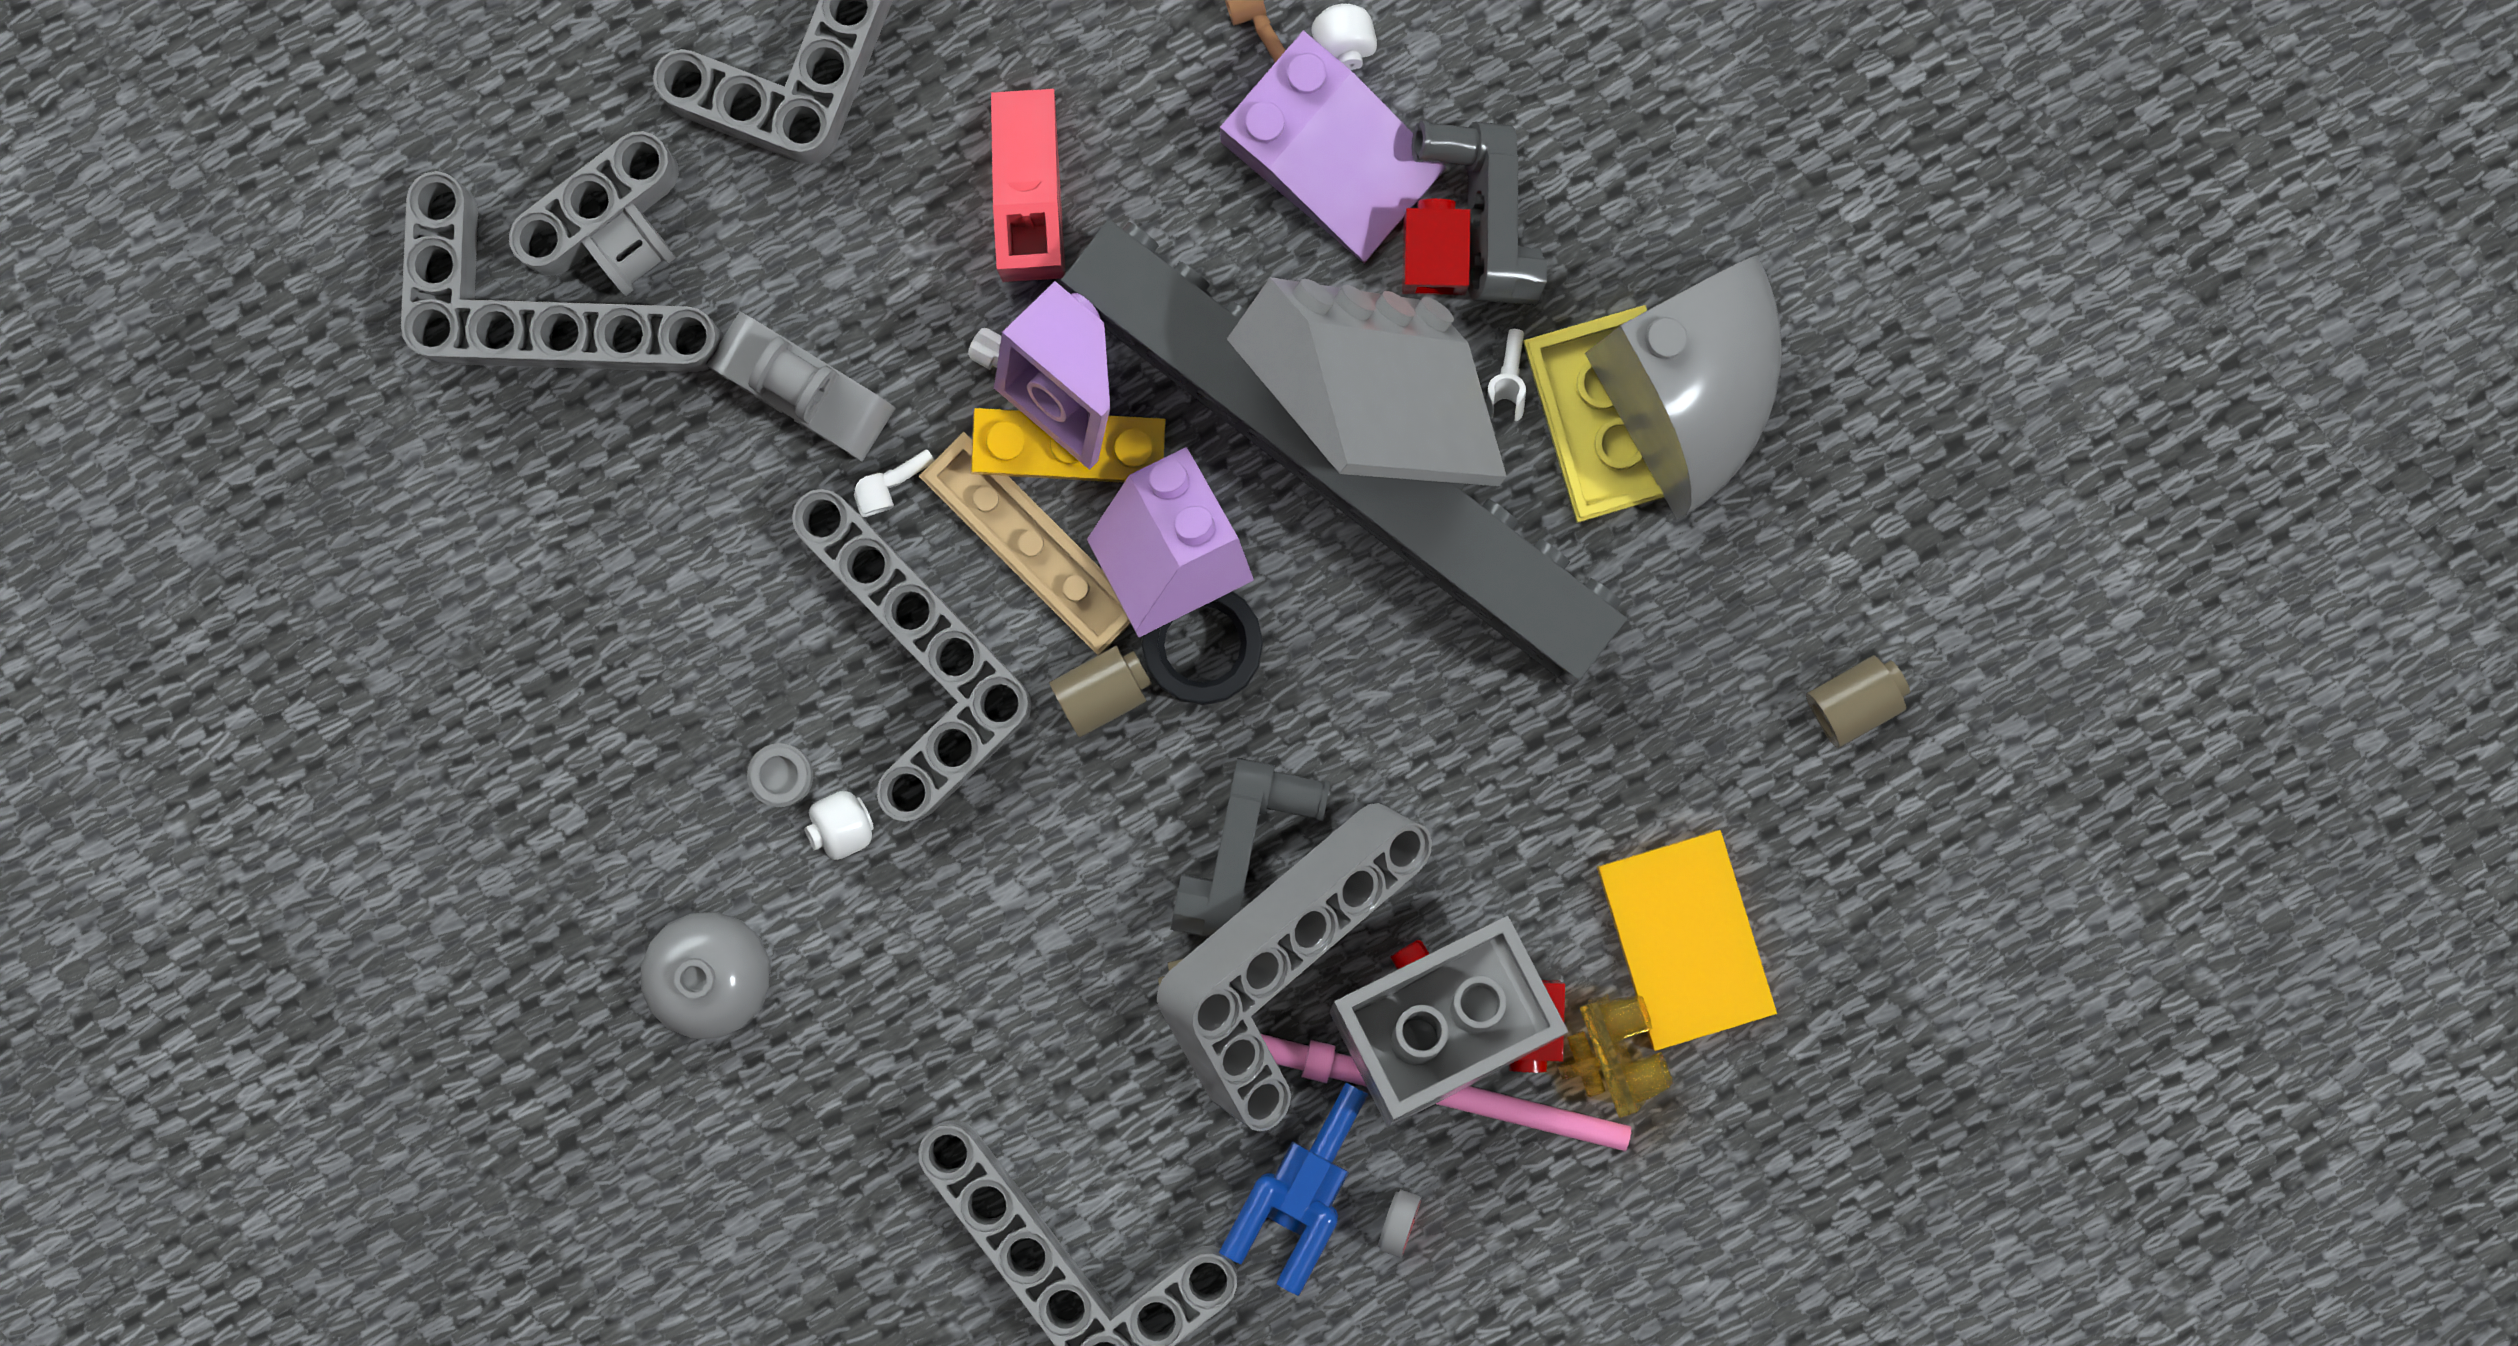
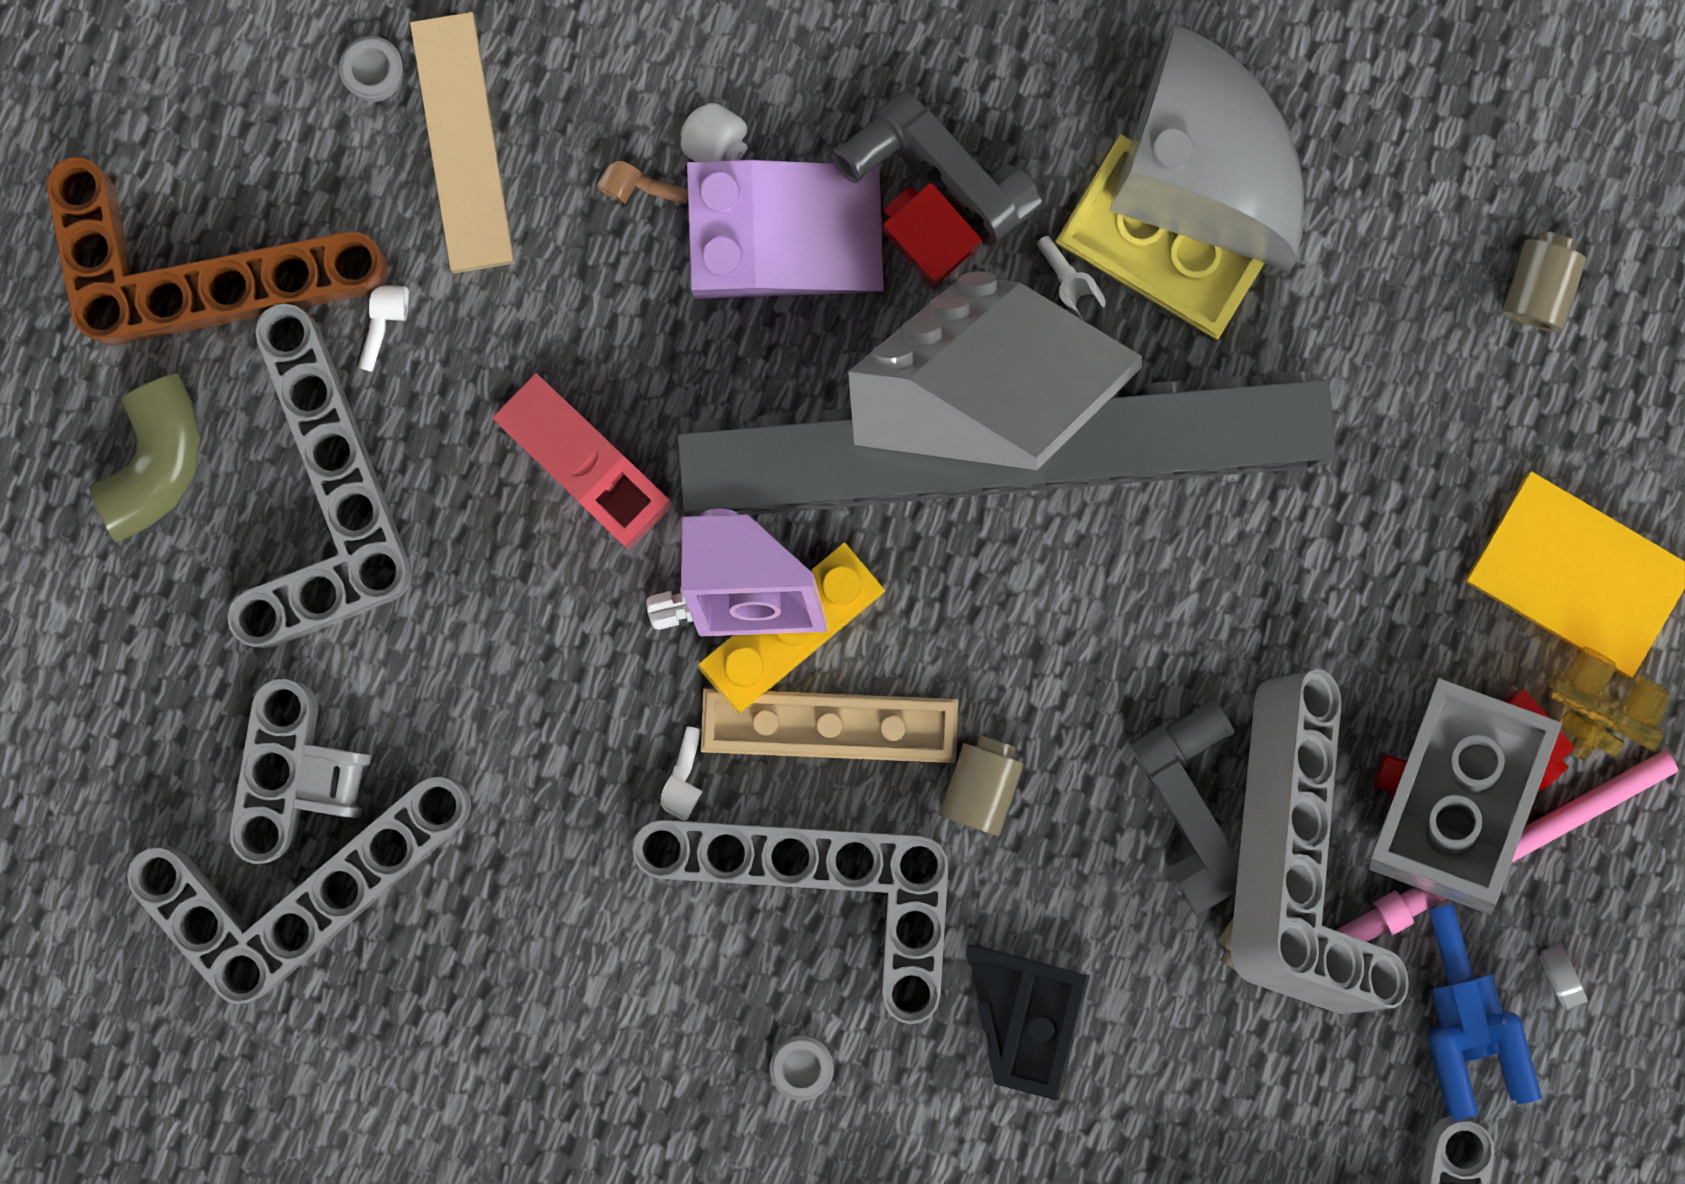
camera: 40 degrees left, 0 degrees up
(801, 386) = (553, 765): light grey piece -> none
(839, 825) = (879, 1064): white piece -> none
(978, 891) = (1027, 1018): none -> black wing
(1167, 544) = (935, 634): lavender slope -> none
(1226, 686) = (1072, 673): black tyre -> none

